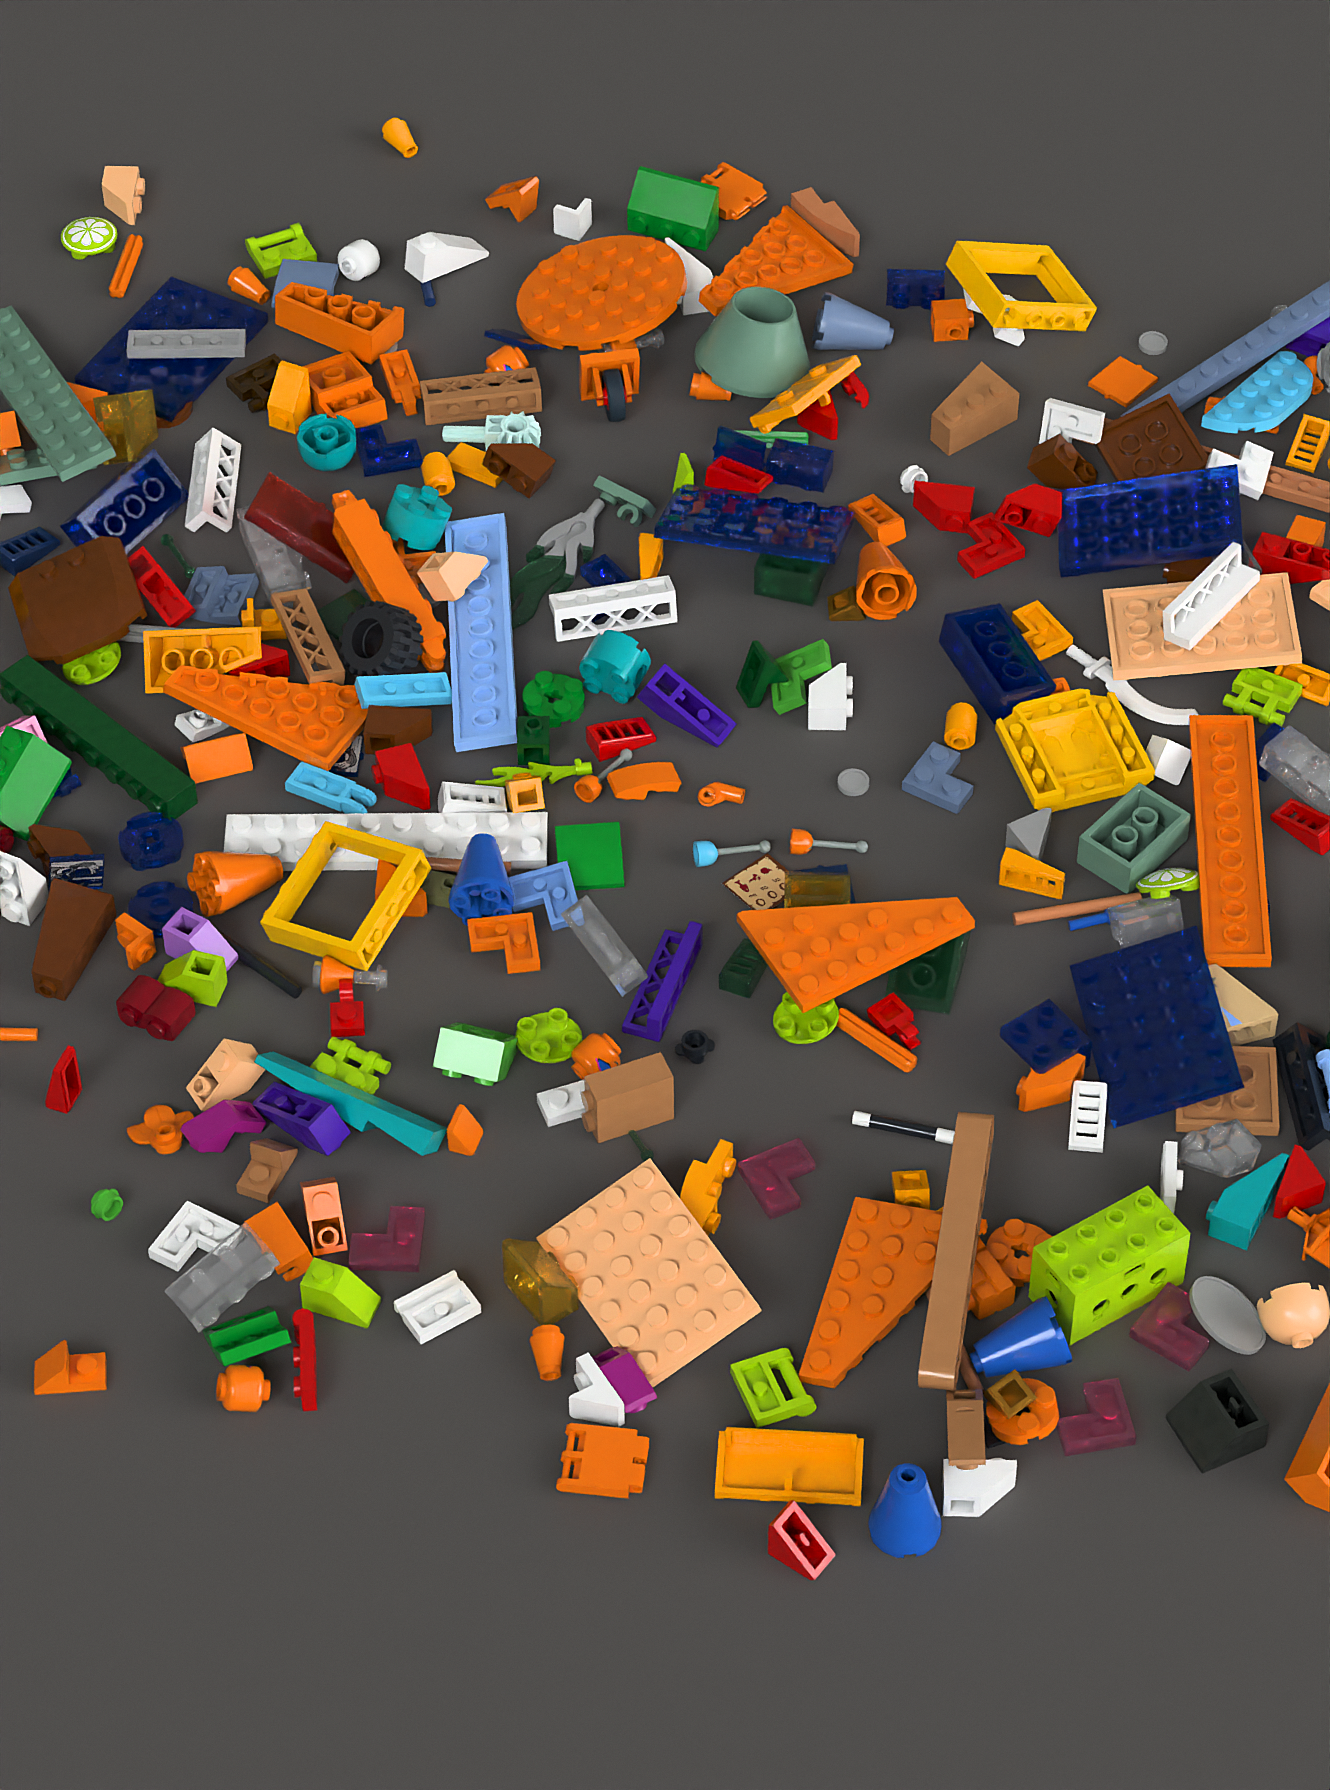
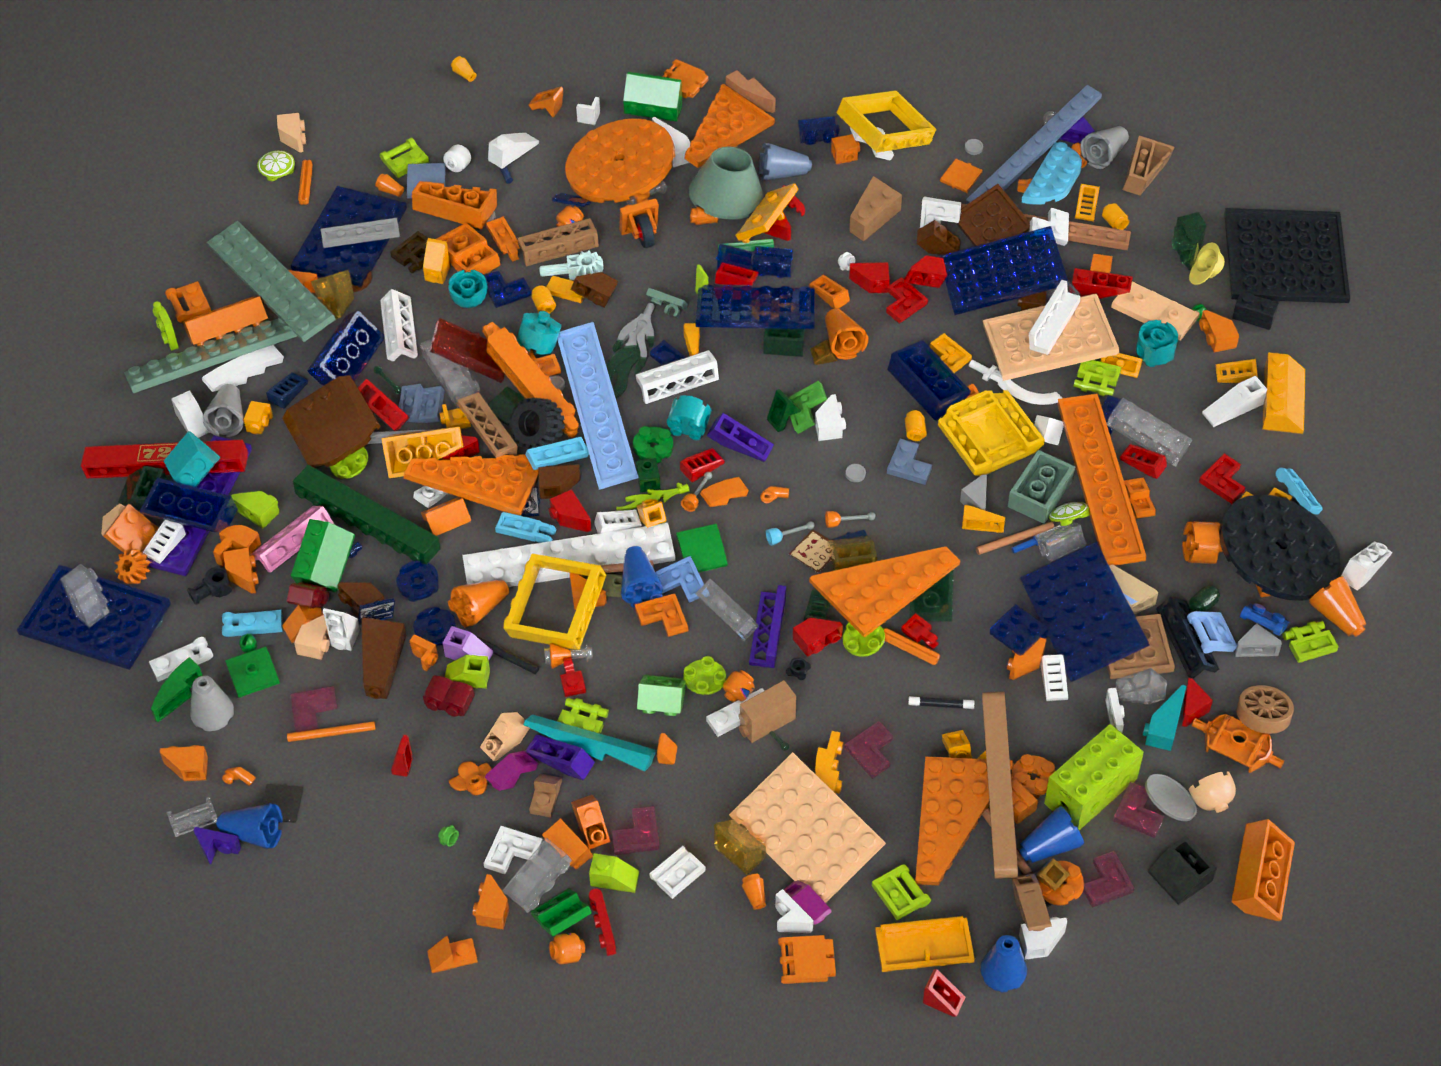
camera: 10 degrees left, 5 degrees up
(145, 1312) = (492, 905): none -> orange slope
(450, 573) = (570, 370): light nougat slope -> none
(734, 1001) = (816, 634): none -> red slope
(1286, 878) = (1139, 498): none -> orange slope

